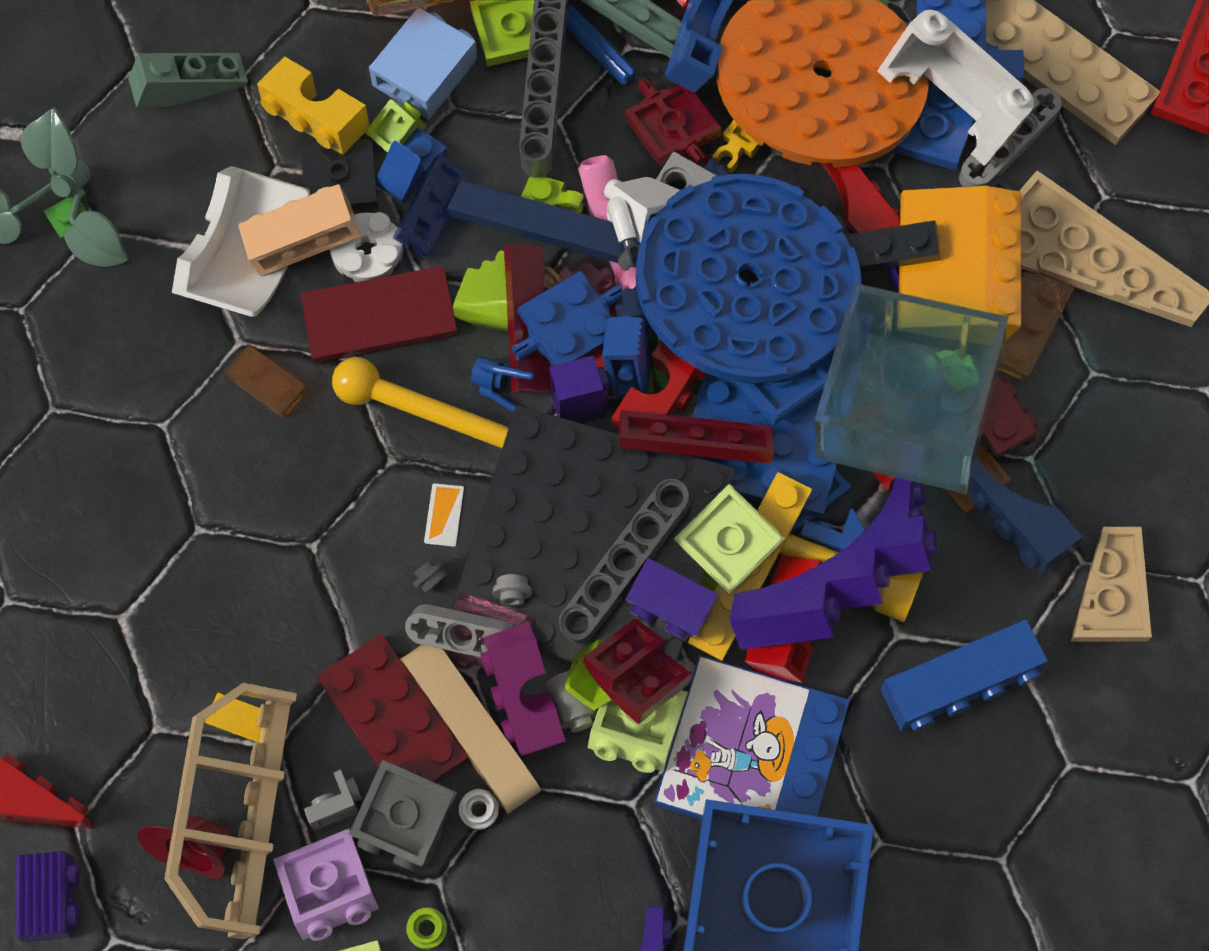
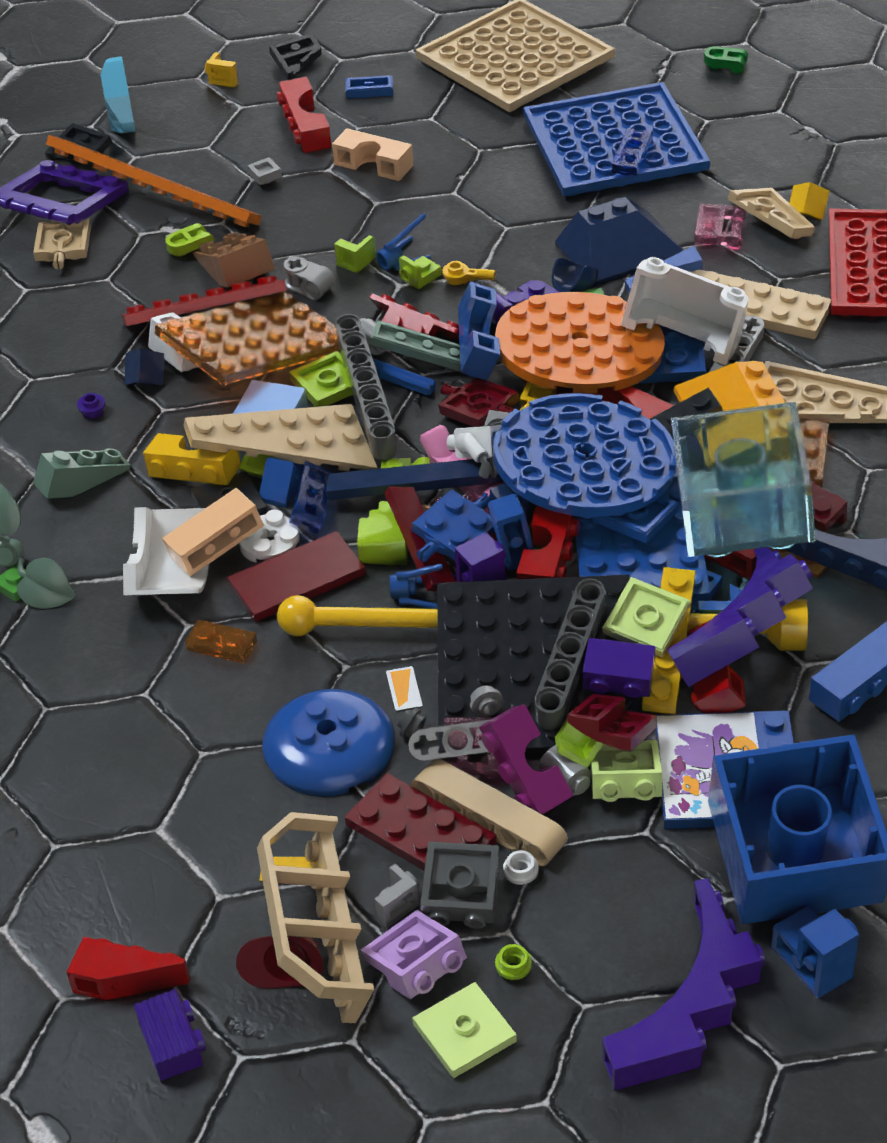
camera: 15 degrees left, 25 degrees down
(343, 596) = (328, 742): none -> blue brick
(441, 115) = (293, 435): none -> tan wing
(696, 437) = (598, 560): dark red plate -> none

